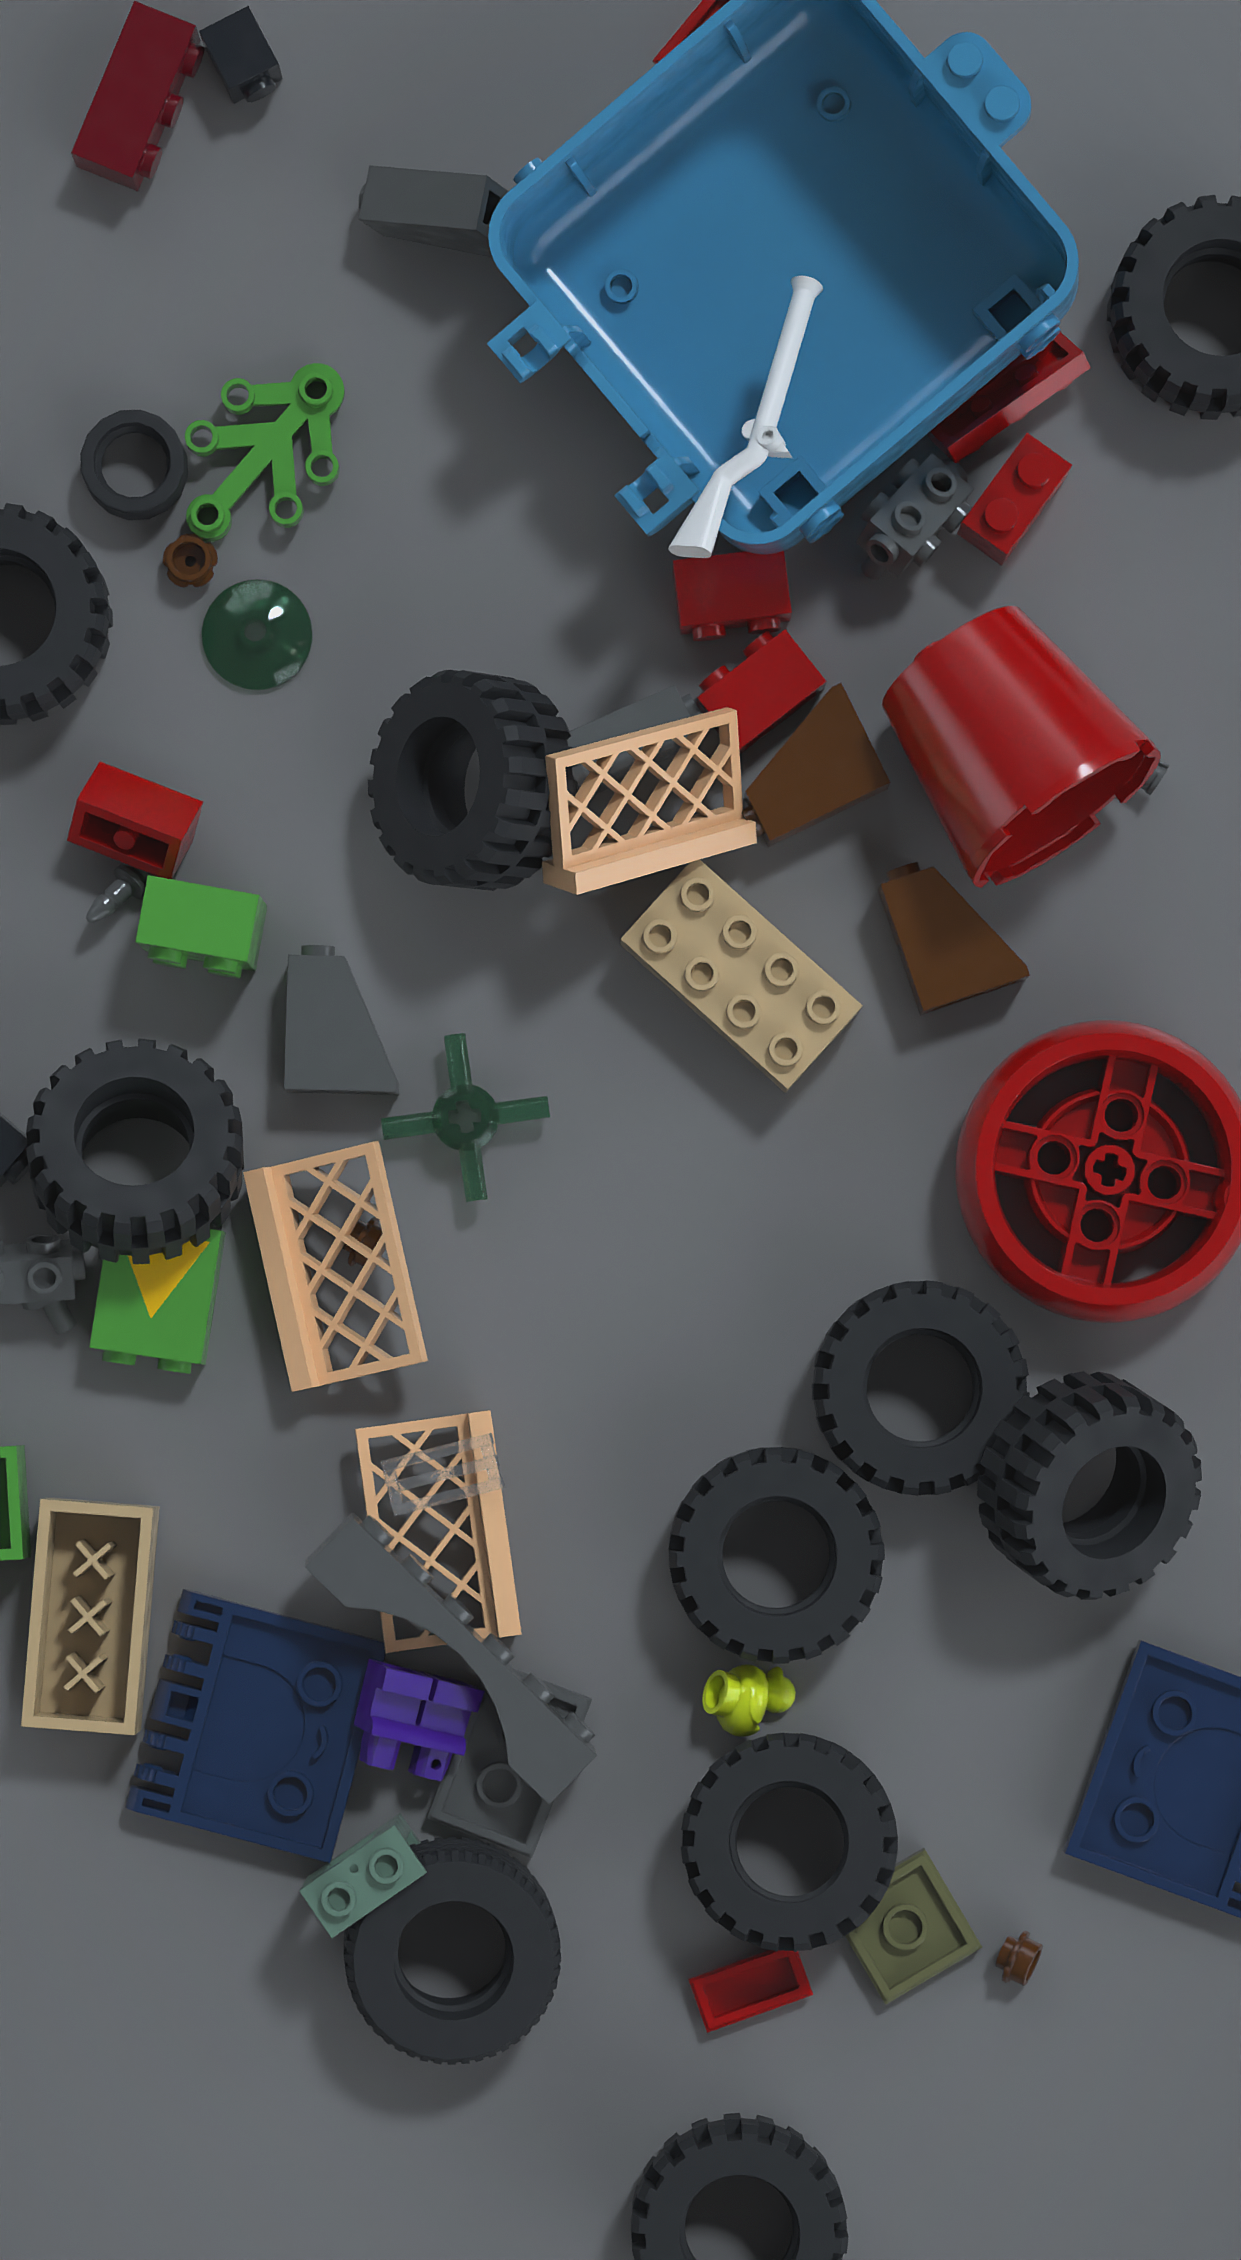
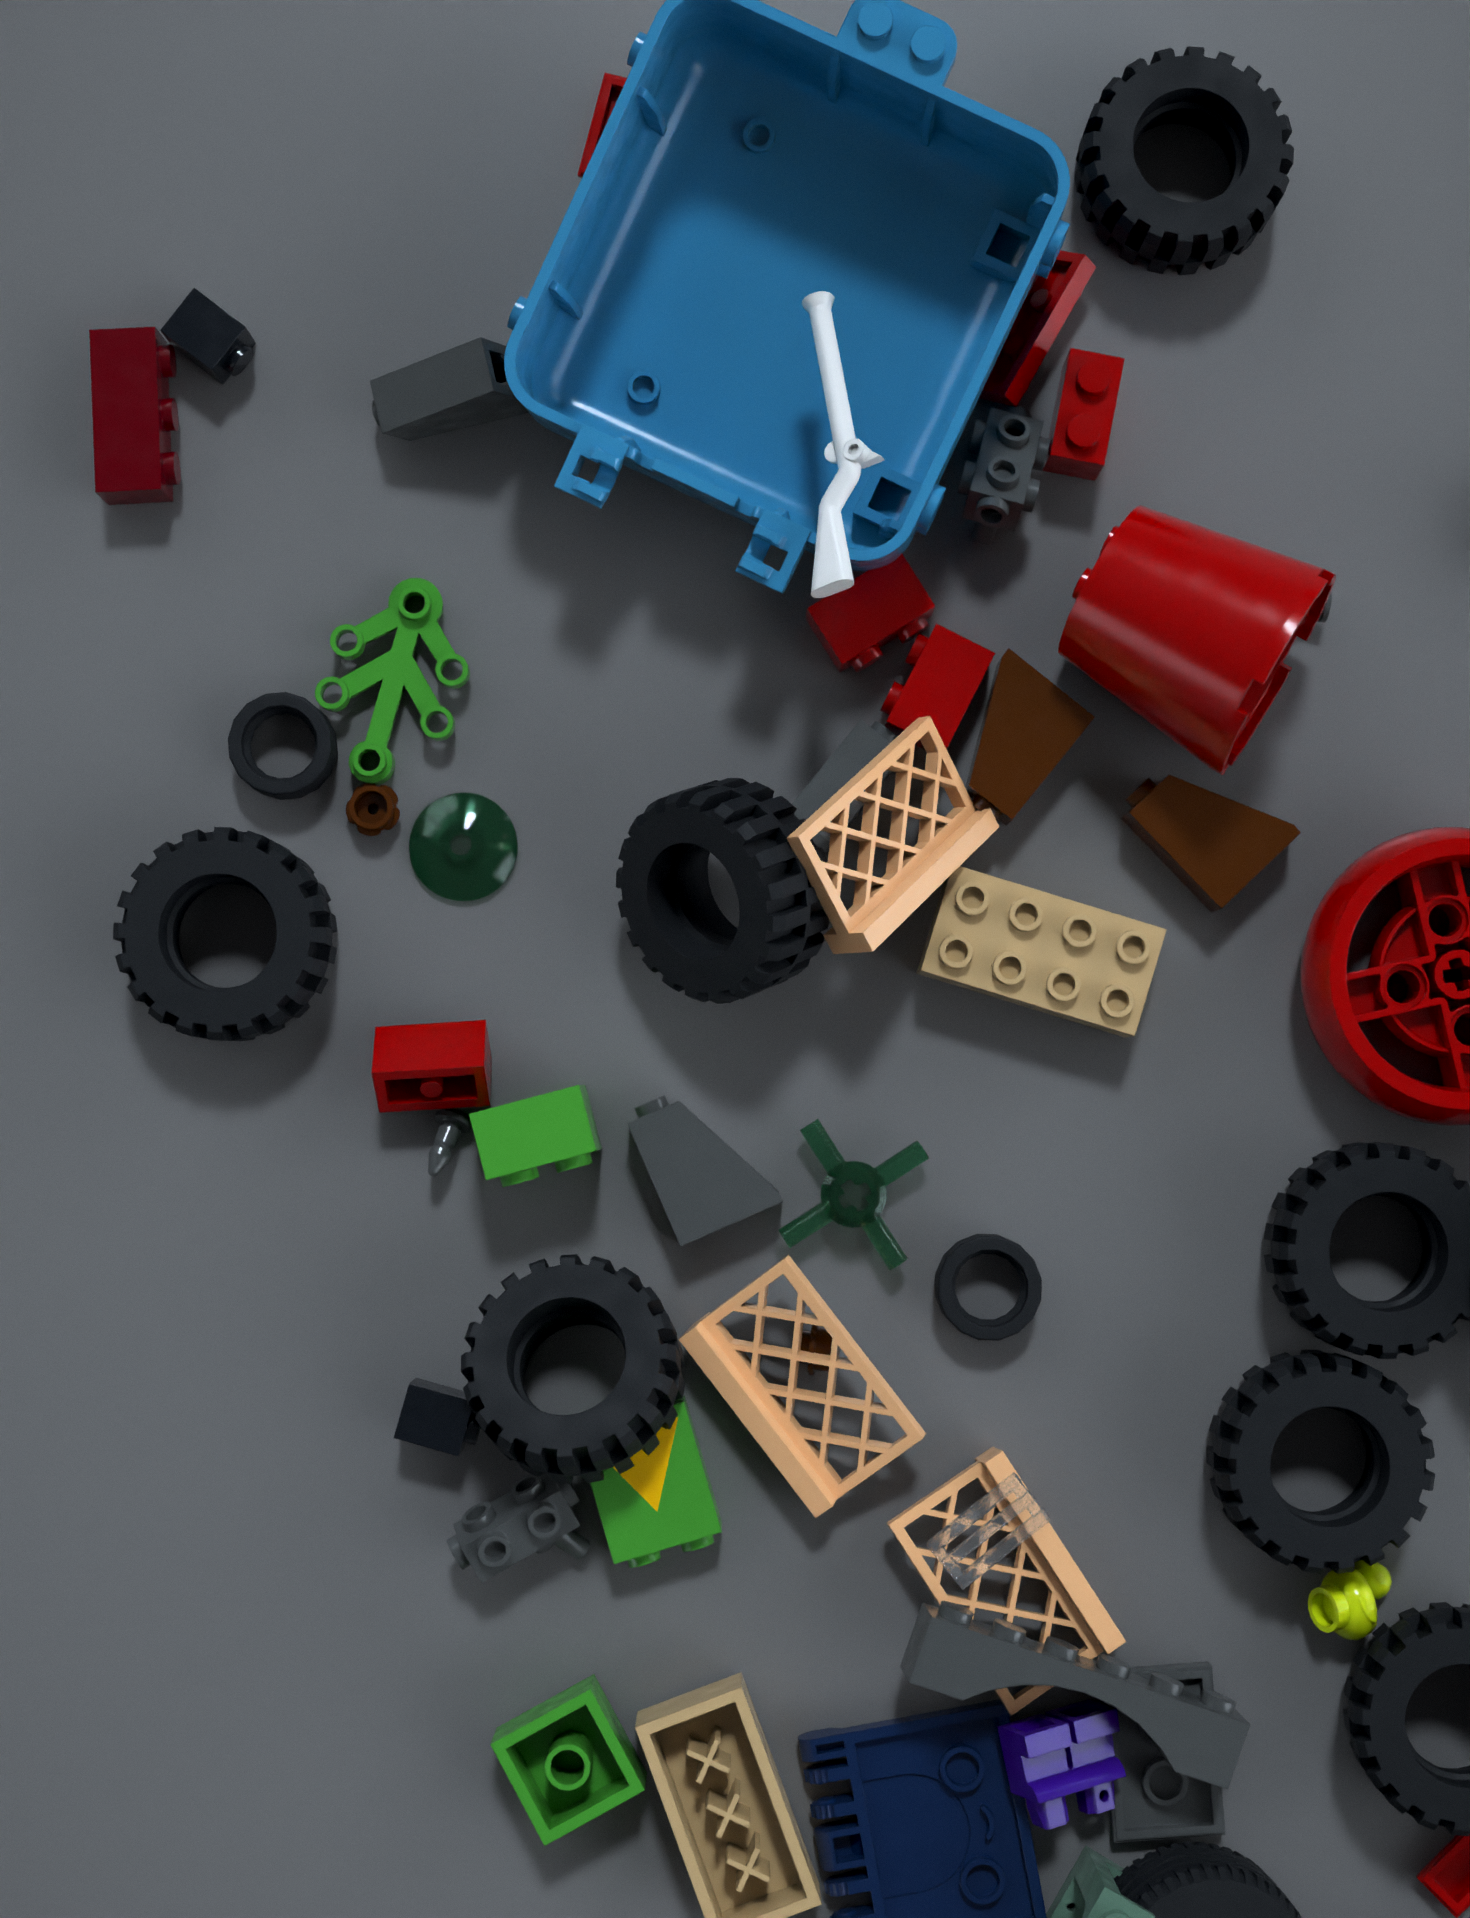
camera: 25 degrees left, 0 degrees up
(535, 1220) = (1026, 1303): none -> black tyre

